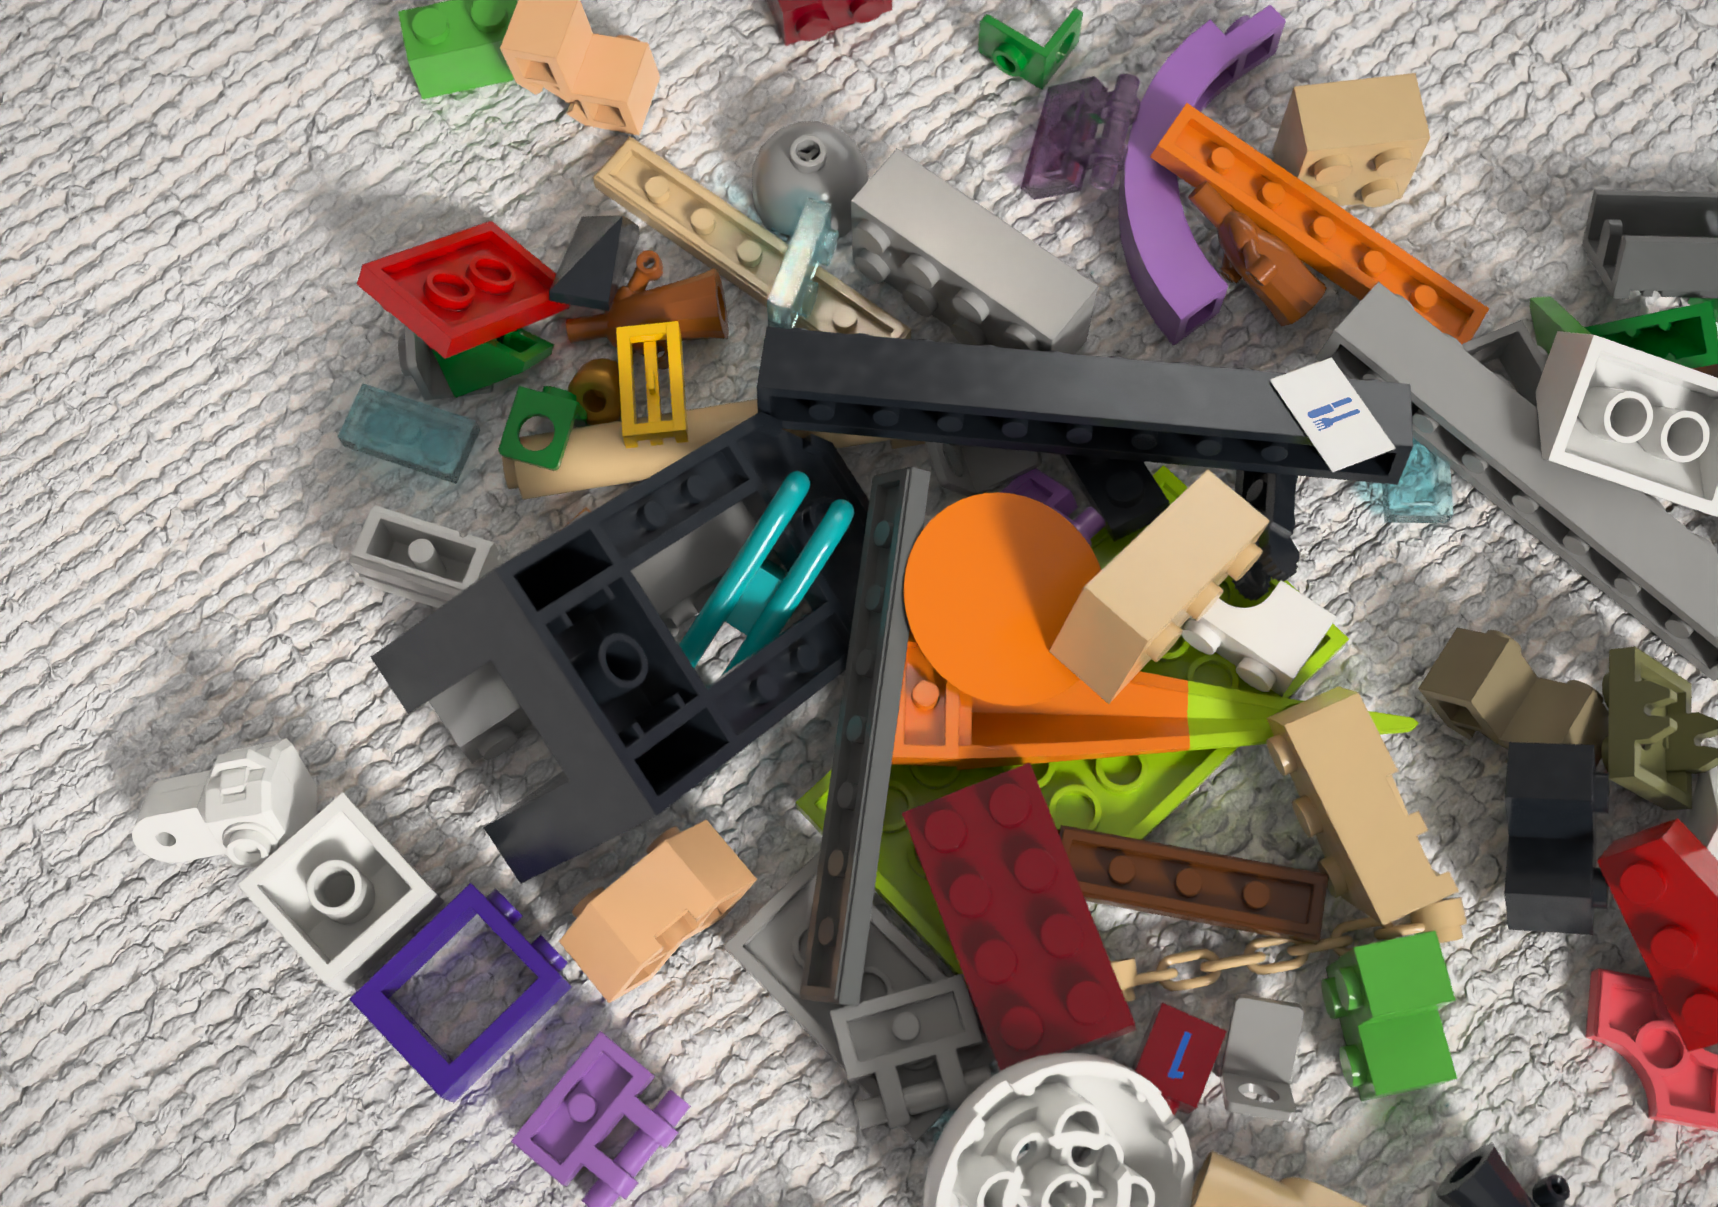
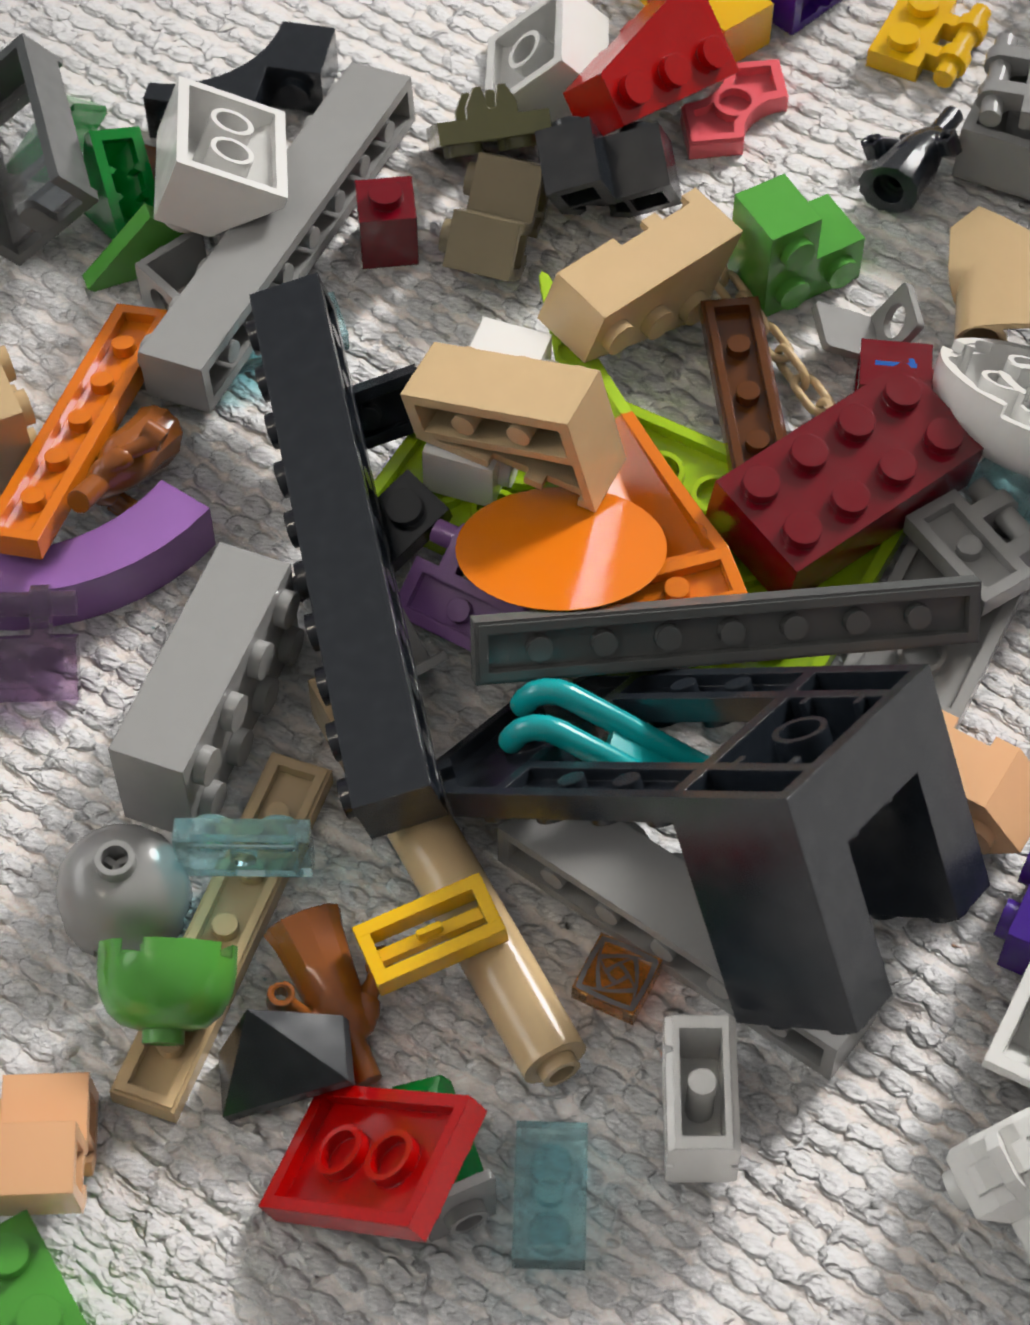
camera: 110 degrees left, 15 degrees down
(553, 404) = (485, 1035): green bracket -> none
(598, 390) = (440, 1010): pearl gold piece -> none
(686, 172) = (166, 985): none -> bright green cylinder
(1332, 414) = (302, 335): white sticker -> none
(1540, 591) = (387, 222): none -> dark red brick

